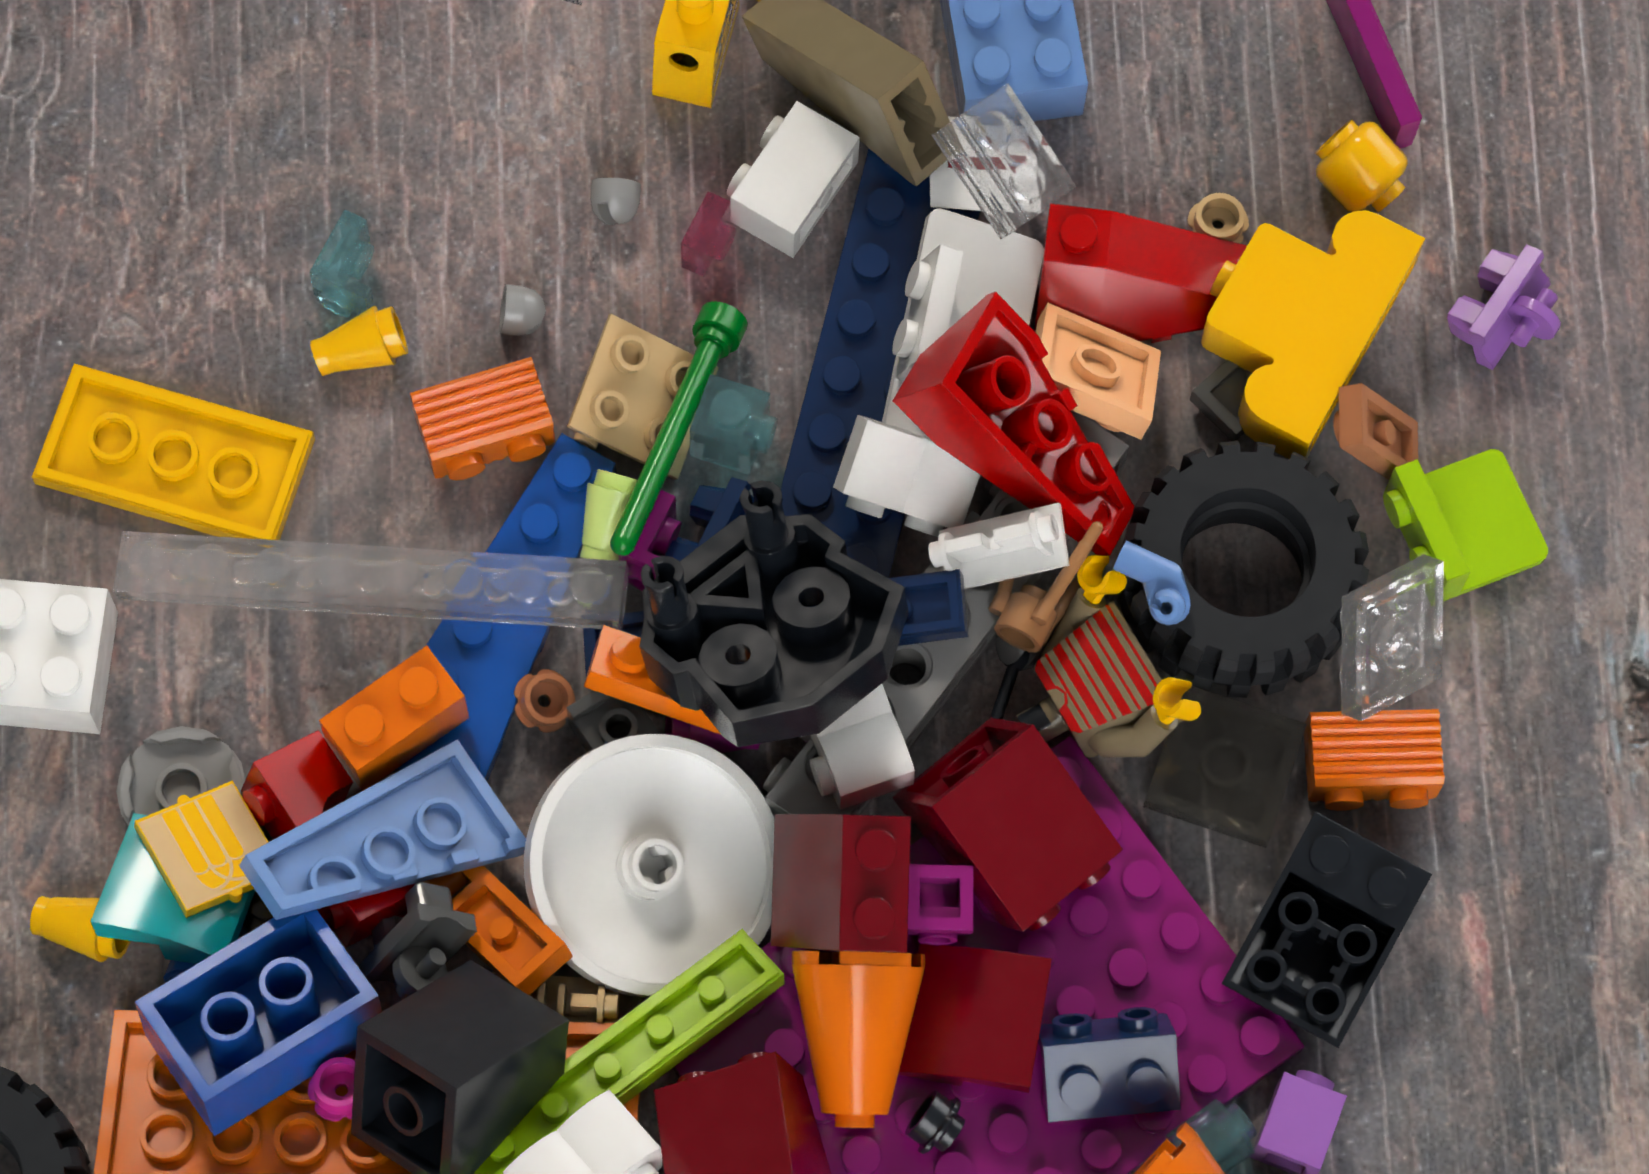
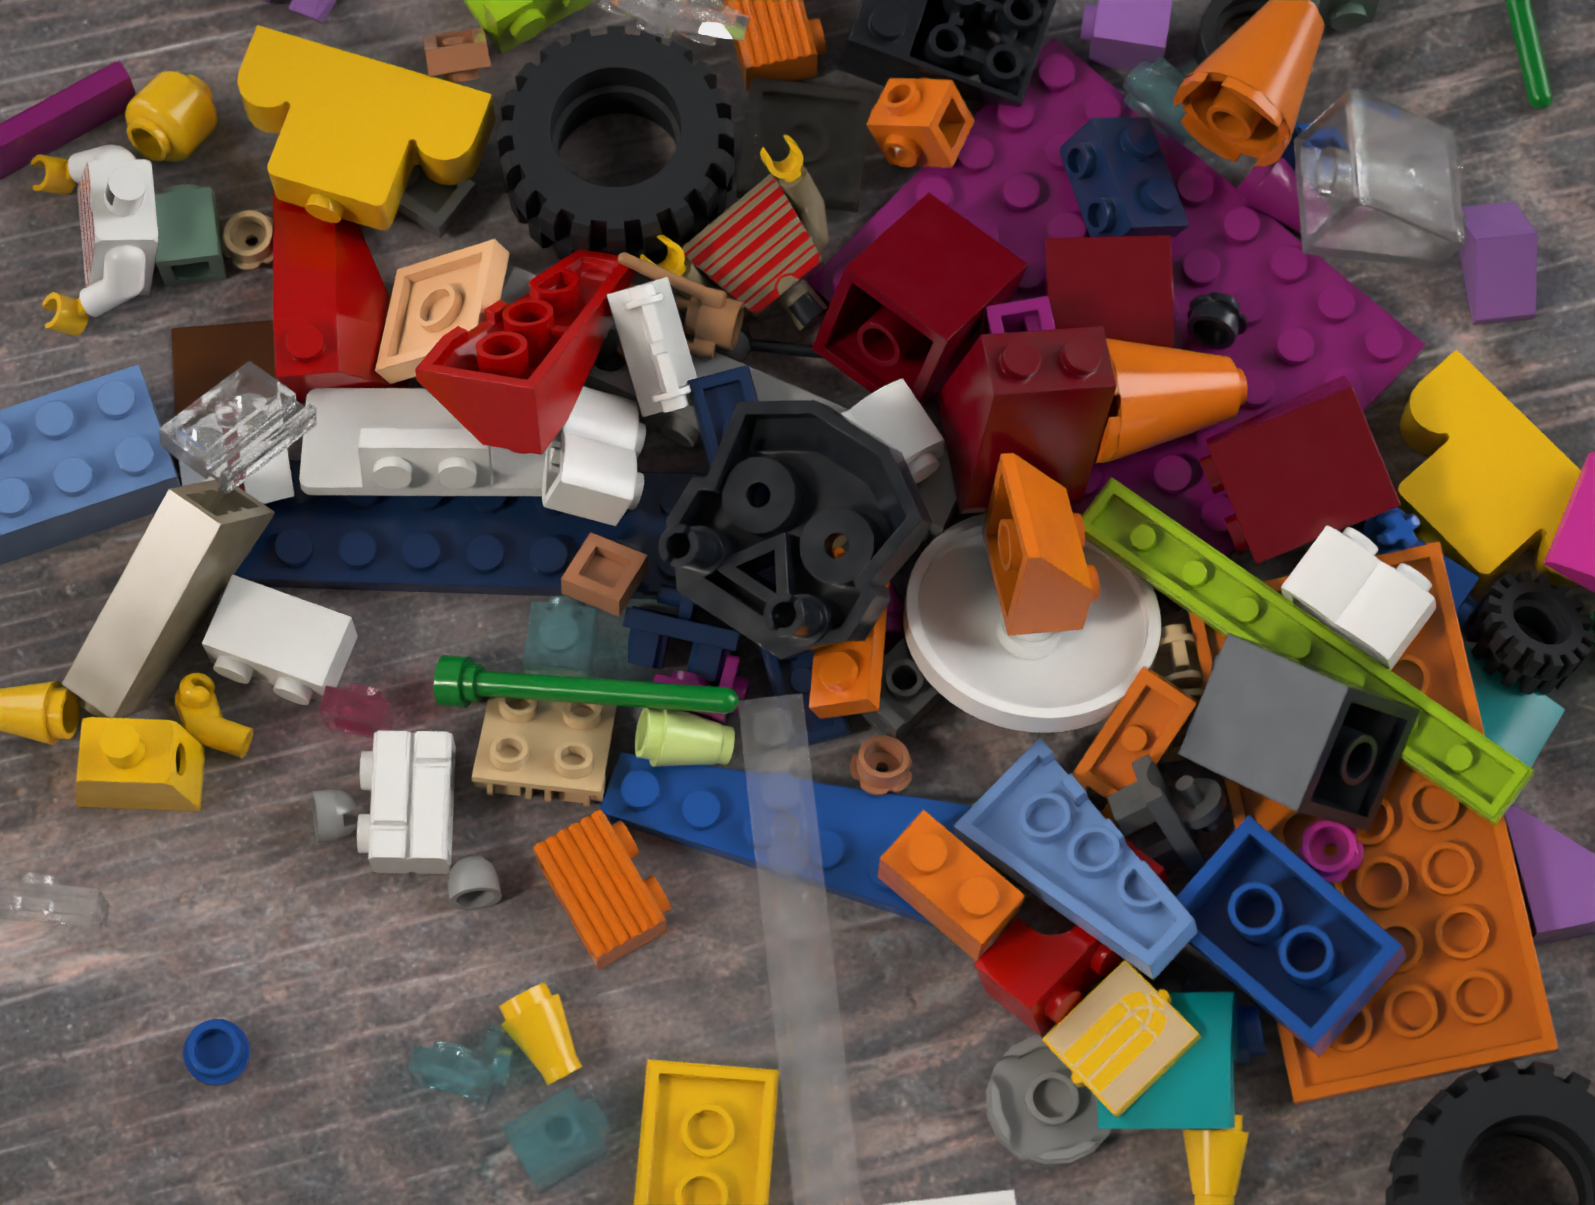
camera: 100 degrees left, 0 degrees up
(256, 335) = (558, 1138): none -> clear light blue brick
(415, 67) = (216, 1052): none -> blue plate
(607, 265) = (410, 802): none -> white brick
(709, 870) = (1037, 552): none -> orange slope
(735, 106) = (203, 718): none -> yellow arm
(788, 462) = (604, 574): none -> nougat plate
(1102, 169) = (213, 352): none -> reddish brown sticker
(1161, 579) = (668, 190): medium blue arm -> none
(1220, 876) = (920, 122): none -> orange brick
(1232, 161) = (189, 236): none -> sand green brick
(1247, 90) = (116, 230): none -> white torso

